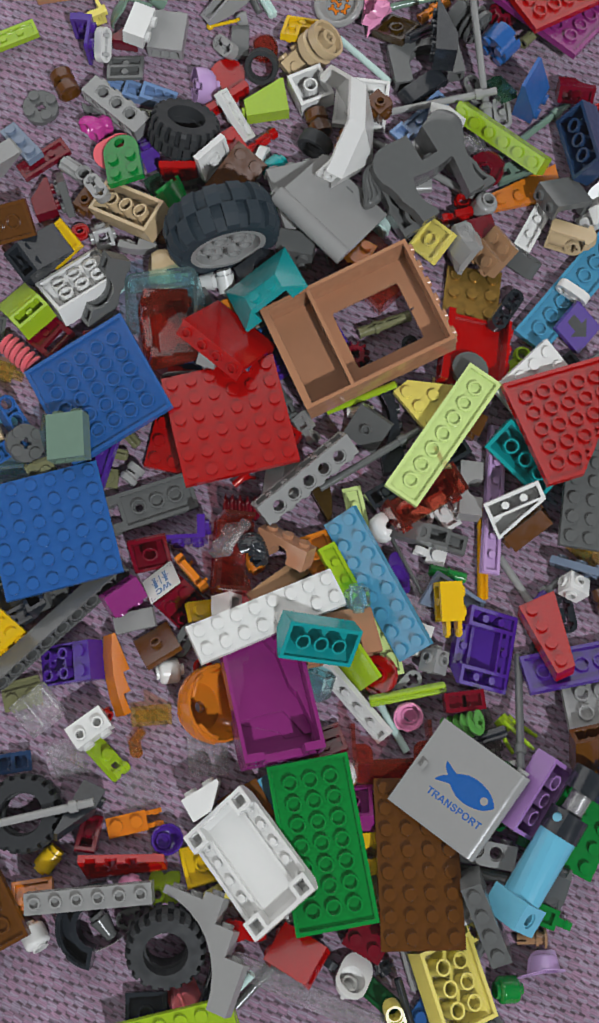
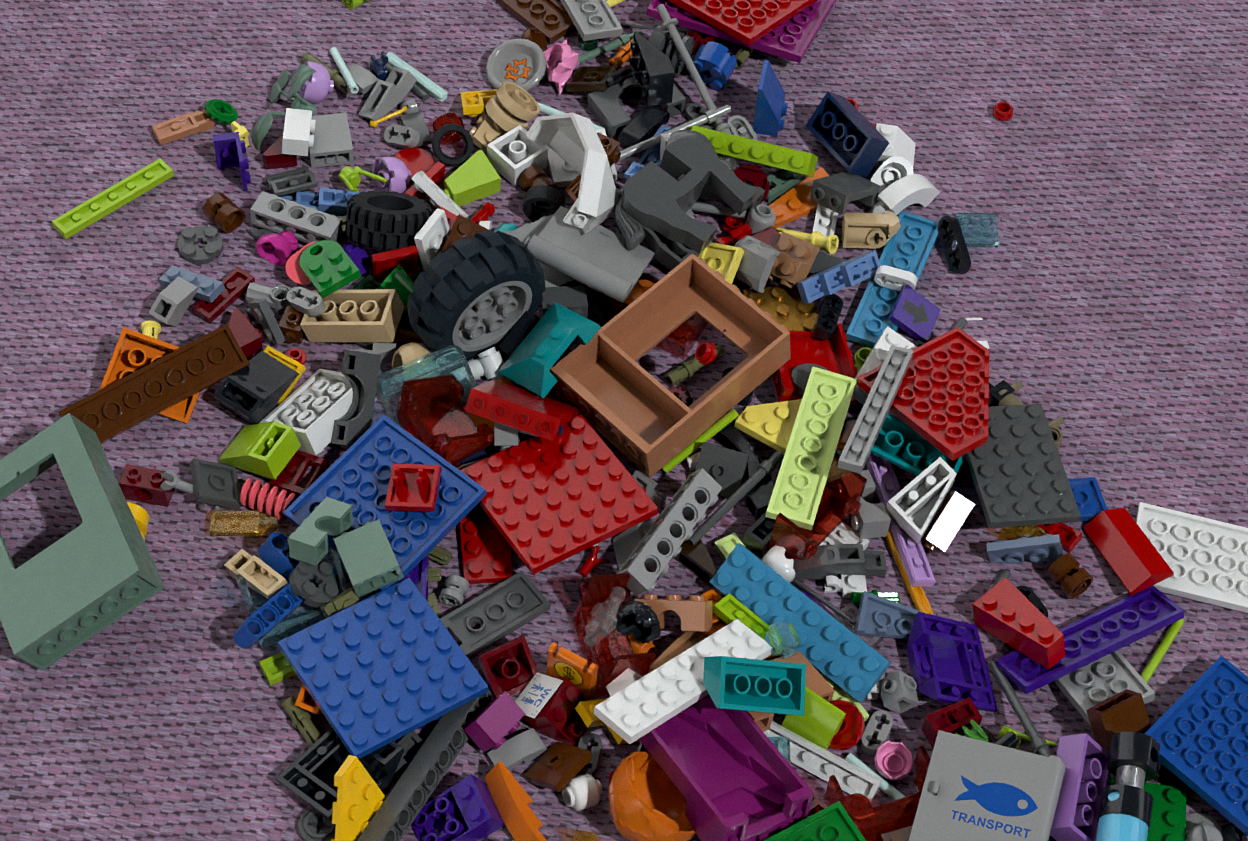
camera: 20 degrees left, 25 degrees down
(48, 393) = (310, 539): none -> sand green arch
(102, 44) = (257, 162): white beam -> none
(103, 242) = (326, 352): light grey brick -> none
(118, 387) = (413, 487): none -> red plate
(173, 76) = (352, 178): none -> lime plant
(198, 539) = (560, 632): dark purple bracket -> none
(381, 337) = (705, 352): none -> red plate
(383, 228) = (654, 269): light aqua cone -> none
(407, 694) = (882, 735): lime axle -> none
(450, 606) = (893, 621): yellow hinge -> none
(501, 424) = (875, 409): none -> light grey plate
(505, 91) = (738, 108): clear green plate -> none
(515, 580) = (953, 585): light grey bar -> none
(520, 238) = (825, 242): none -> light yellow pin
(527, 277) = (838, 277): none -> medium blue slope
(554, 114) = (799, 122): sand green bar -> none
(572, 91) = (811, 92): dark red arch -> none
(573, 586) = (1025, 569): white brick -> none

